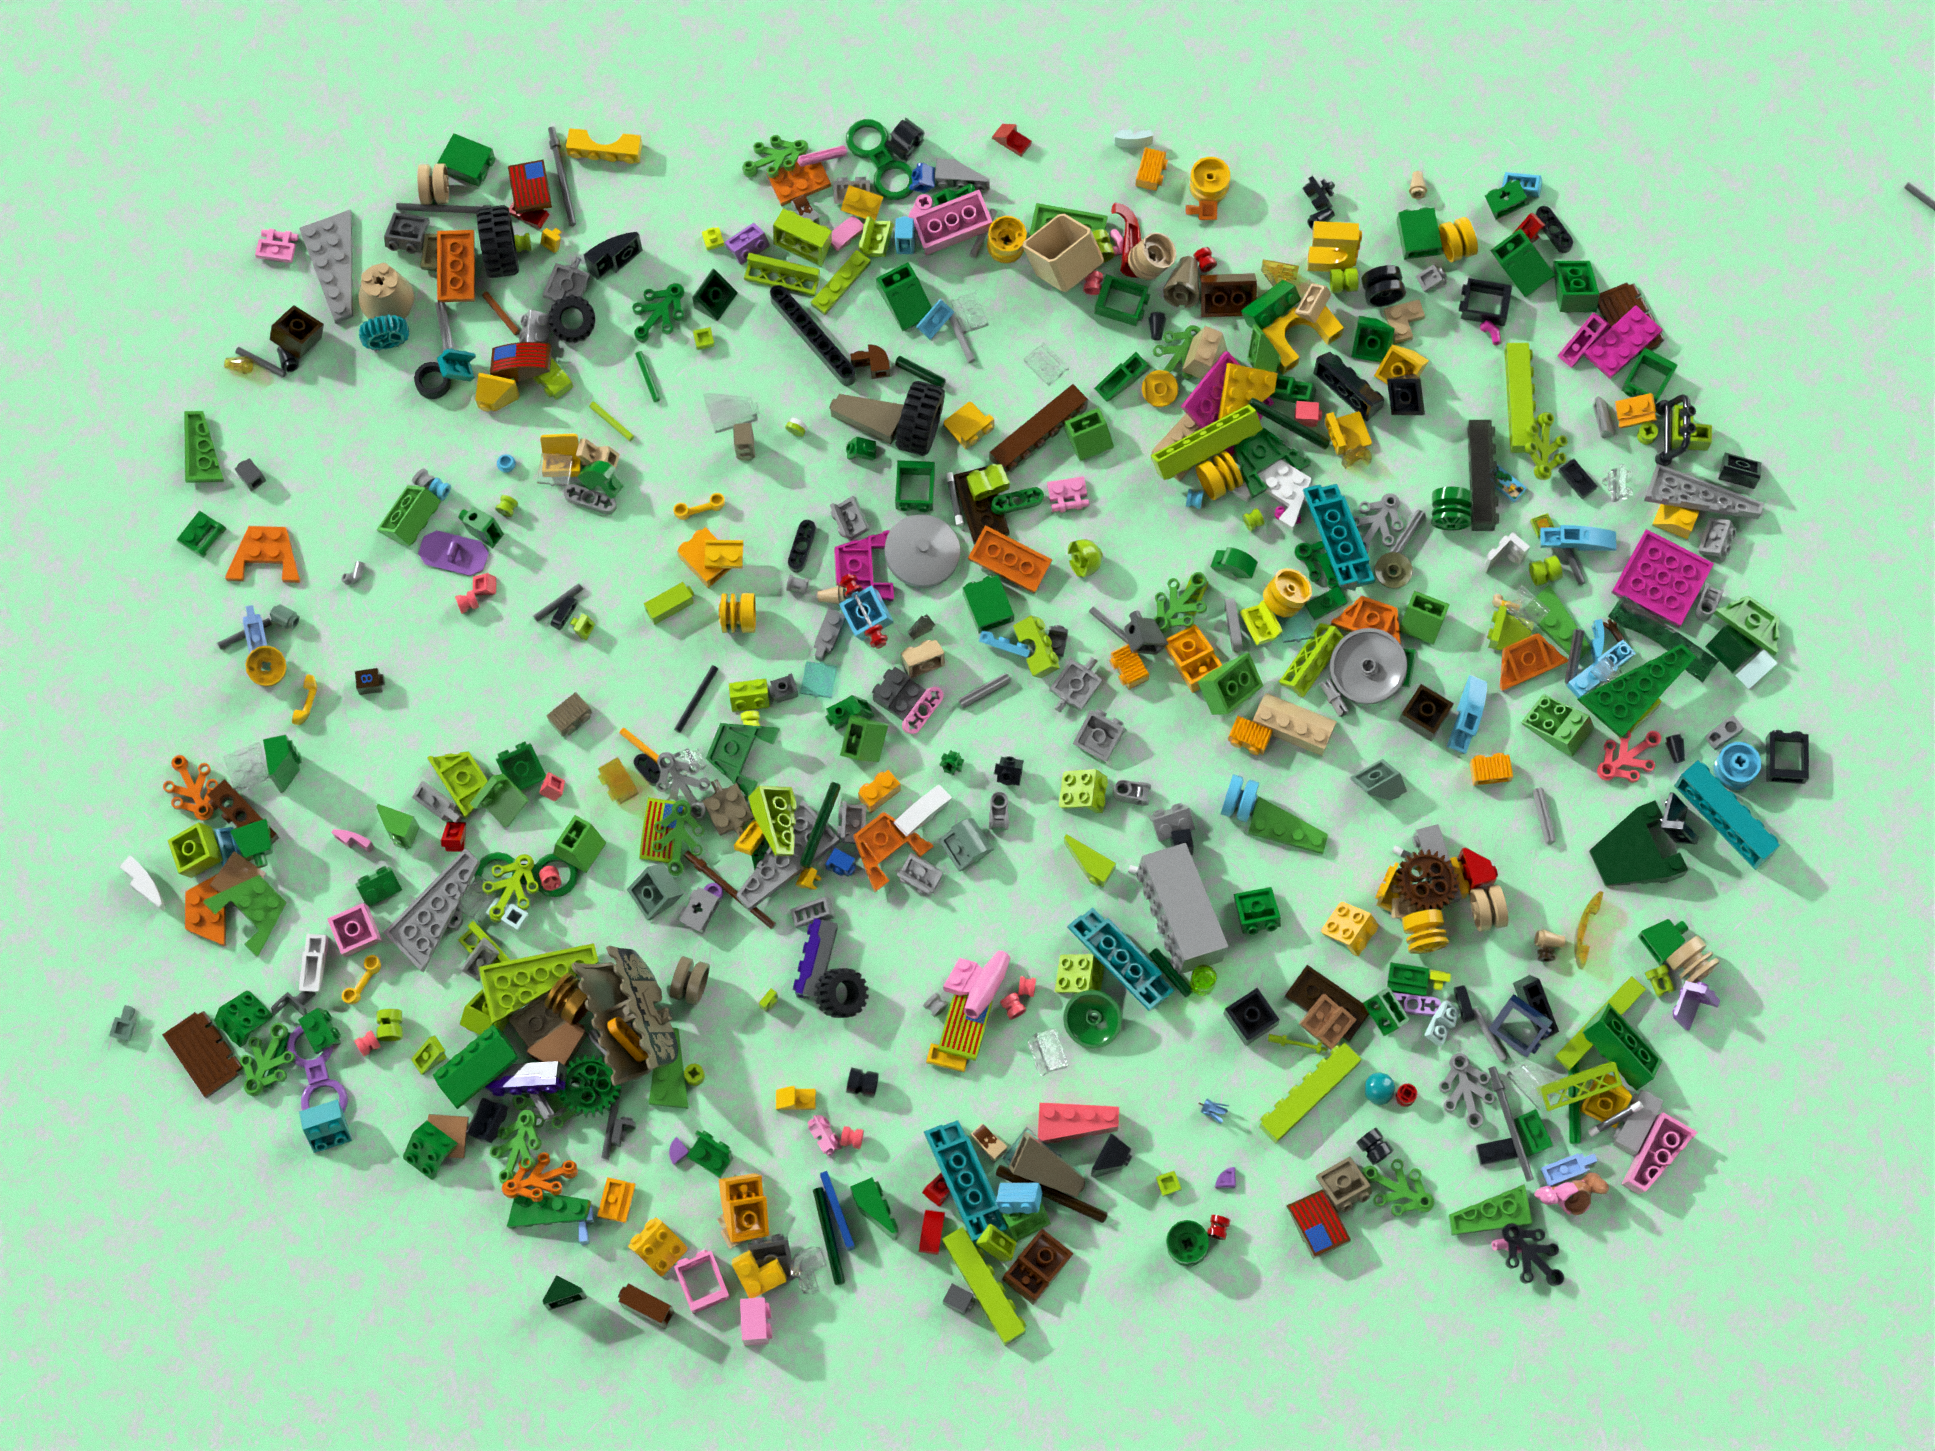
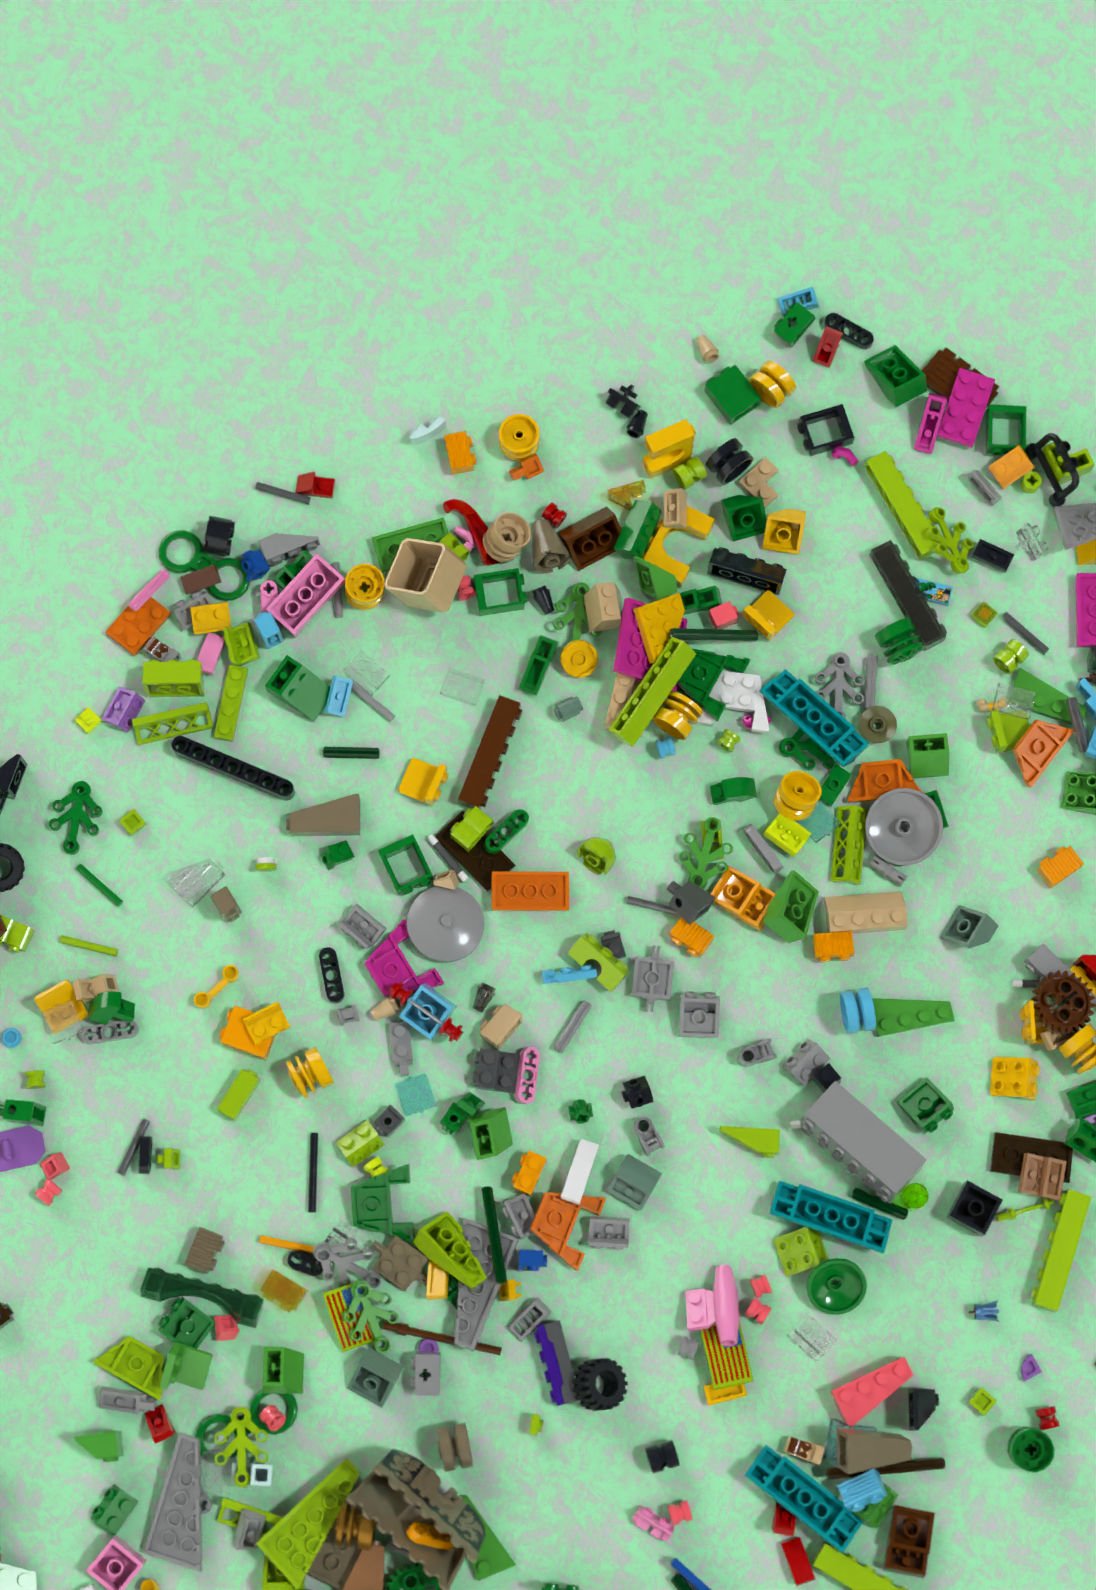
camera: 30 degrees left, 5 degrees up
(348, 839) = (61, 1479): bright pink slope -> none
(519, 725) = (163, 1285): none -> clear green arch
(696, 1077) = (507, 1533): lime wheel -> none
(714, 295) = (121, 776): dark green slope -> none
(777, 156) = (105, 610): bright green plant -> none
(795, 1099) = (608, 1503): yellow slope -> none
(870, 1204) = (733, 1568): green slope -> none
(871, 168) = (200, 579): none -> reddish brown tile
(875, 358) = (305, 761): reddish brown brick -> none
(920, 418) = (380, 801): black tyre -> none
(944, 515) = (447, 880): none -> tan slope
(981, 132) = (283, 493): none -> dark grey bar
(988, 603) = (532, 943): green brick -> none
(997, 1243) = (864, 1541): lime slope -> none
(1068, 489) = (544, 797): bright pink plate -> none
(1083, 790) = (712, 1075): lime bracket -> none
(1088, 434) = (538, 735): bright green slope -> none
(1127, 425) = (568, 708): none -> sand green brick
(1354, 455) = (790, 628): clear yellow bracket -> none
(1406, 395) = (804, 554): black slope -> none
(1426, 712) = (977, 843): dark brown brick -> none
(1431, 277) = (766, 431): light grey bracket -> none
(1469, 715) = (1016, 825): medium azure slope -> none
(1514, 548) = (975, 651): white bracket -> none
(1522, 262) = (841, 377): green slope -> none
(1579, 537) = (1023, 612): medium azure slope -> none

